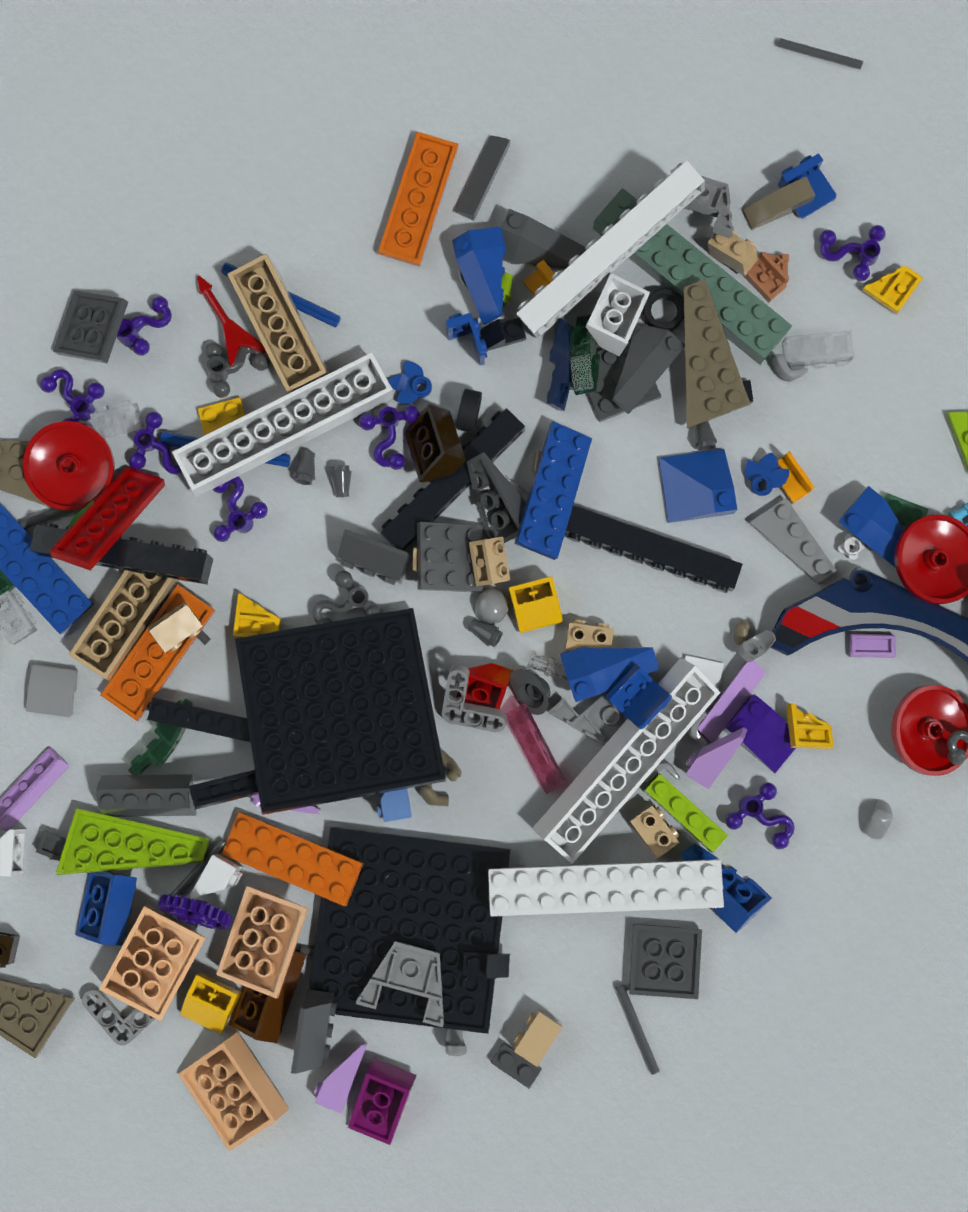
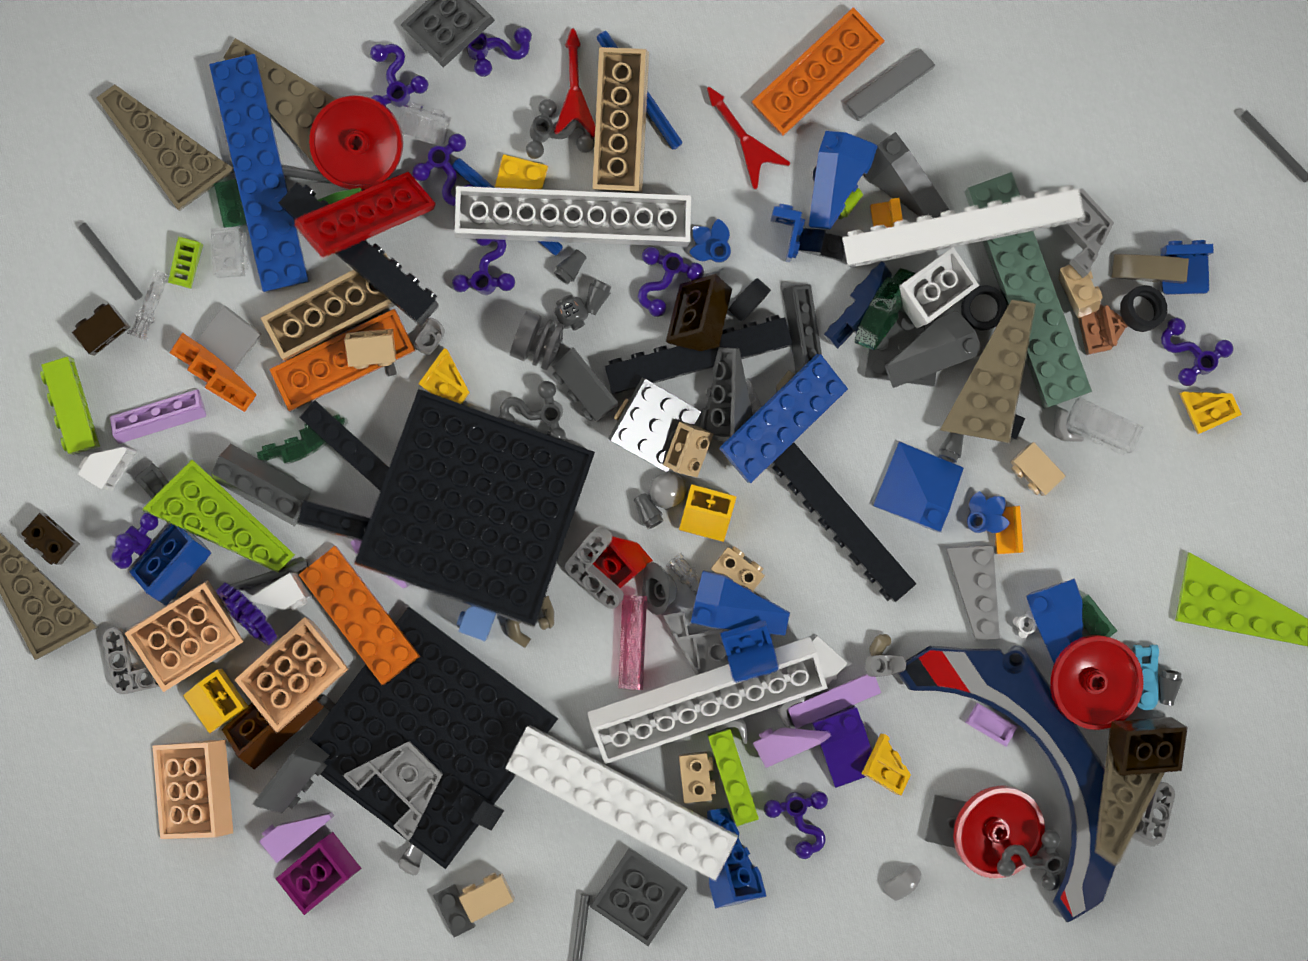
camera: 30 degrees right, 5 degrees up
(57, 724) = (219, 377): none -> orange slope
(63, 907) = (133, 541): none -> dark purple piece
(221, 591) = (429, 337): none -> light grey hair
(312, 542) = (537, 340): none -> flat silver wheel
(327, 505) = (571, 312): none -> dark grey head
(403, 291) = (753, 150): none -> red piece
(524, 407) = (802, 324): none -> dark grey slope
(785, 415) = (1037, 469): none -> tan brick
(797, 225) = (1130, 316): none -> black tyre
(881, 748) = (942, 820): none -> dark grey plate

